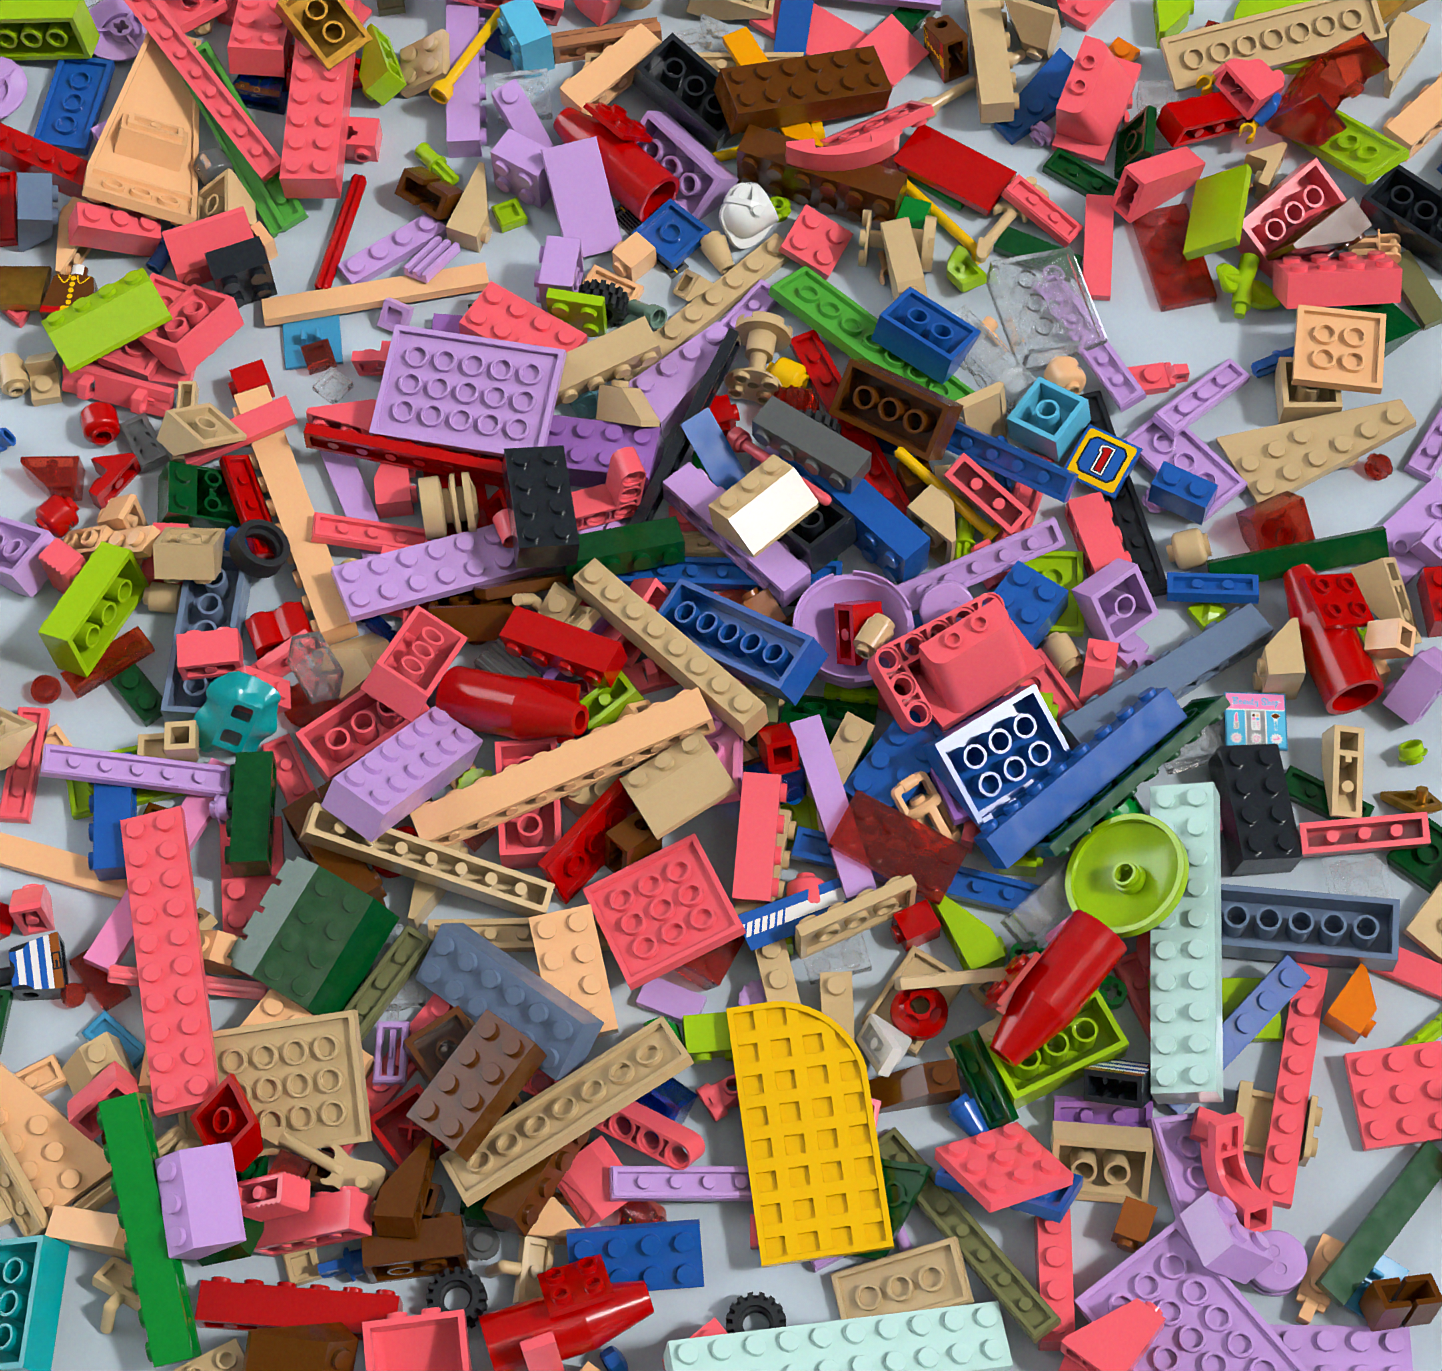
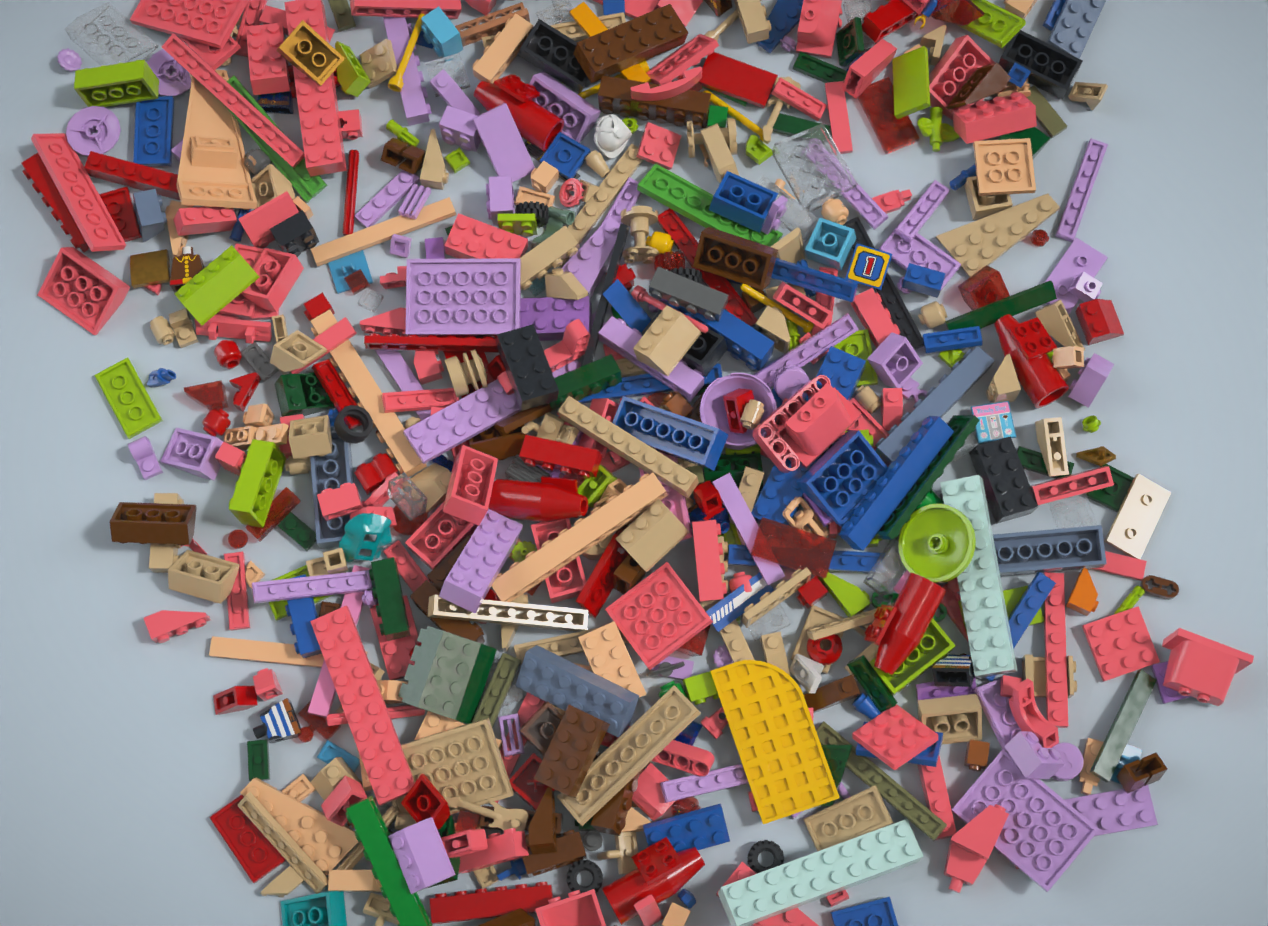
camera: 10 degrees left, 10 degrees up
(658, 999) = (666, 669): none -> dark grey piece
(670, 274) = (566, 198): none -> coral gear
(969, 361) = (776, 212): none -> lavender plate
(1385, 225) = (1018, 74): none -> blue tile

